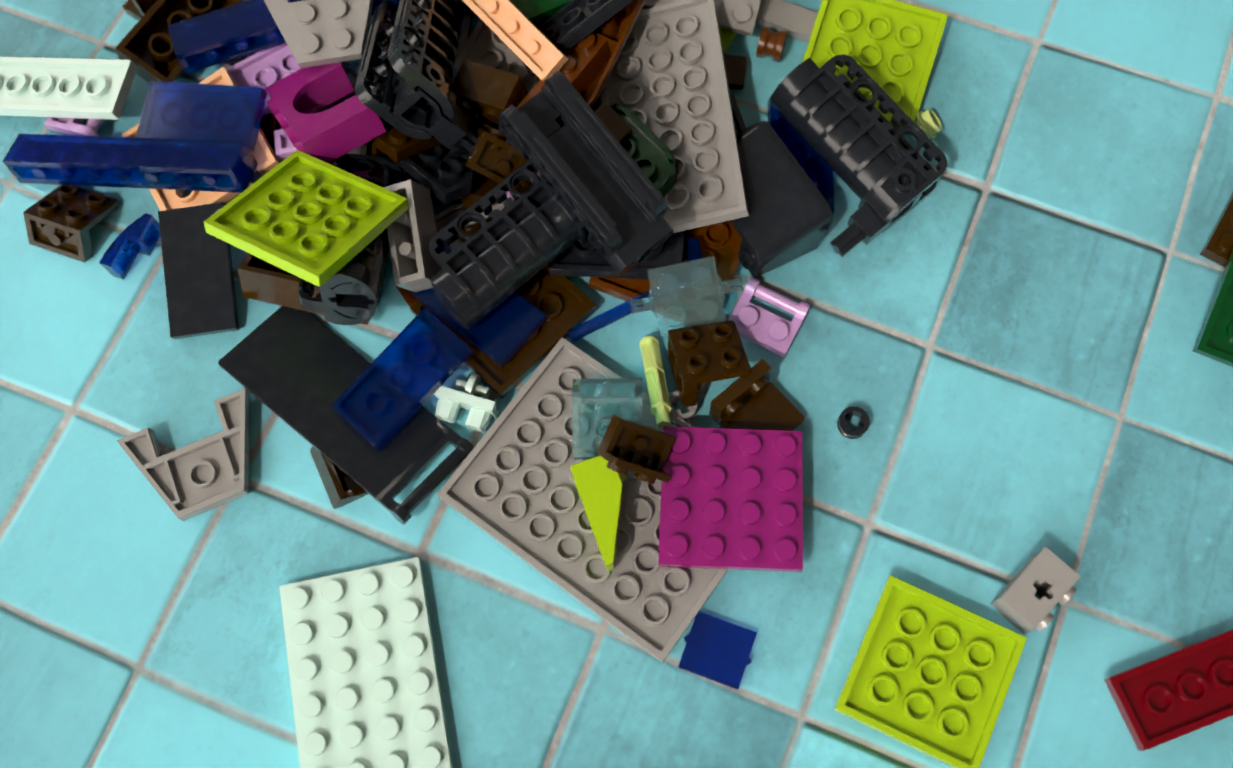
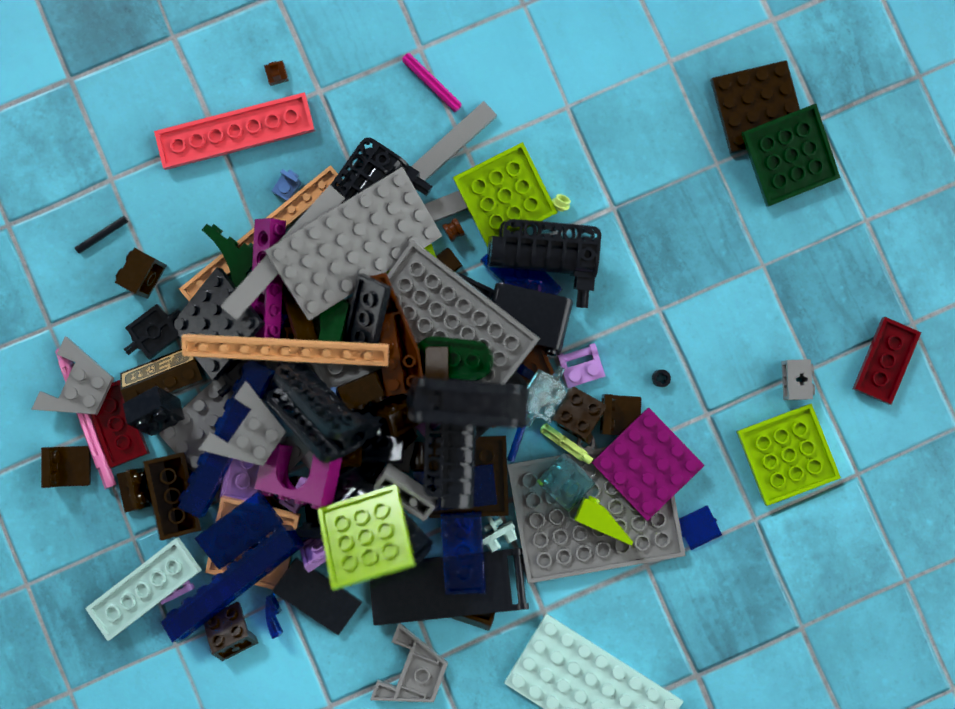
camera: 50 degrees left, 15 degrees up
(636, 448) = (596, 487): dark brown bracket -> none

